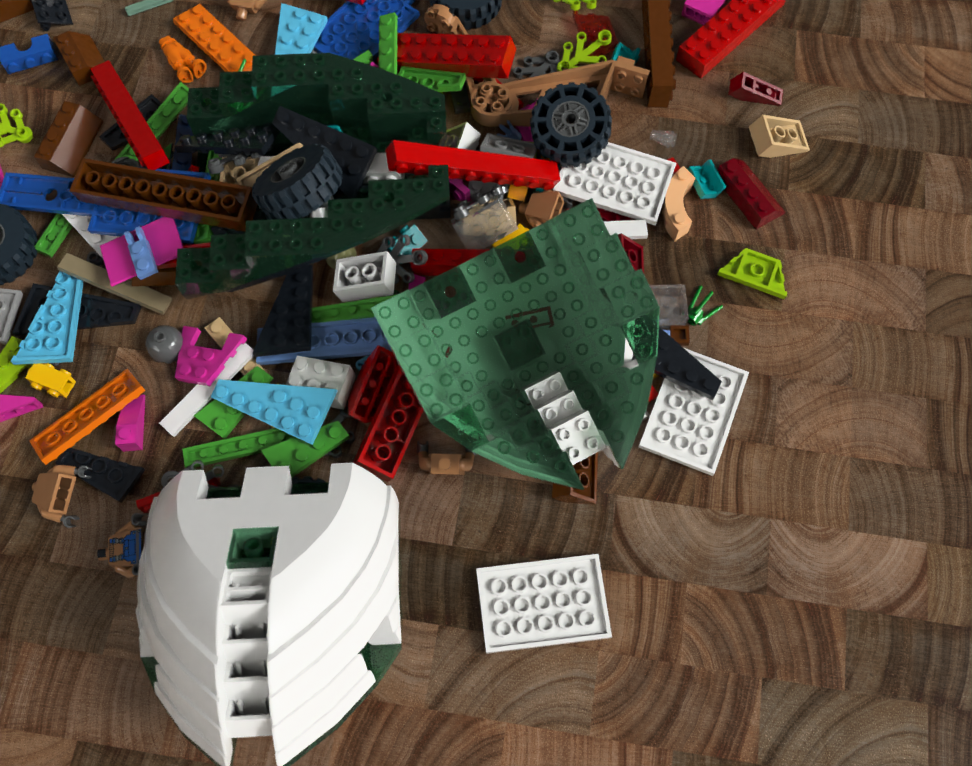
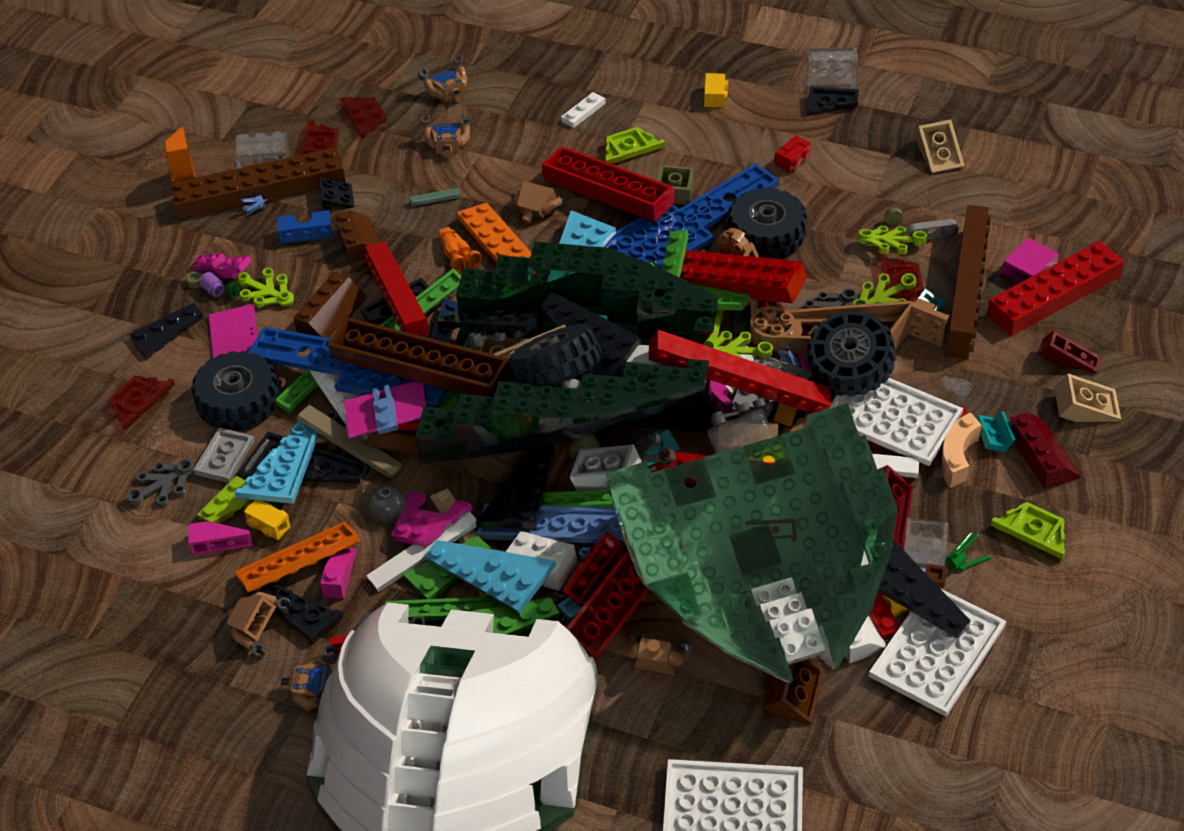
camera: 15 degrees right, 20 degrees down
(358, 427) = (569, 608): none -> medium azure plate
(461, 134) = (763, 349): none -> lime plant

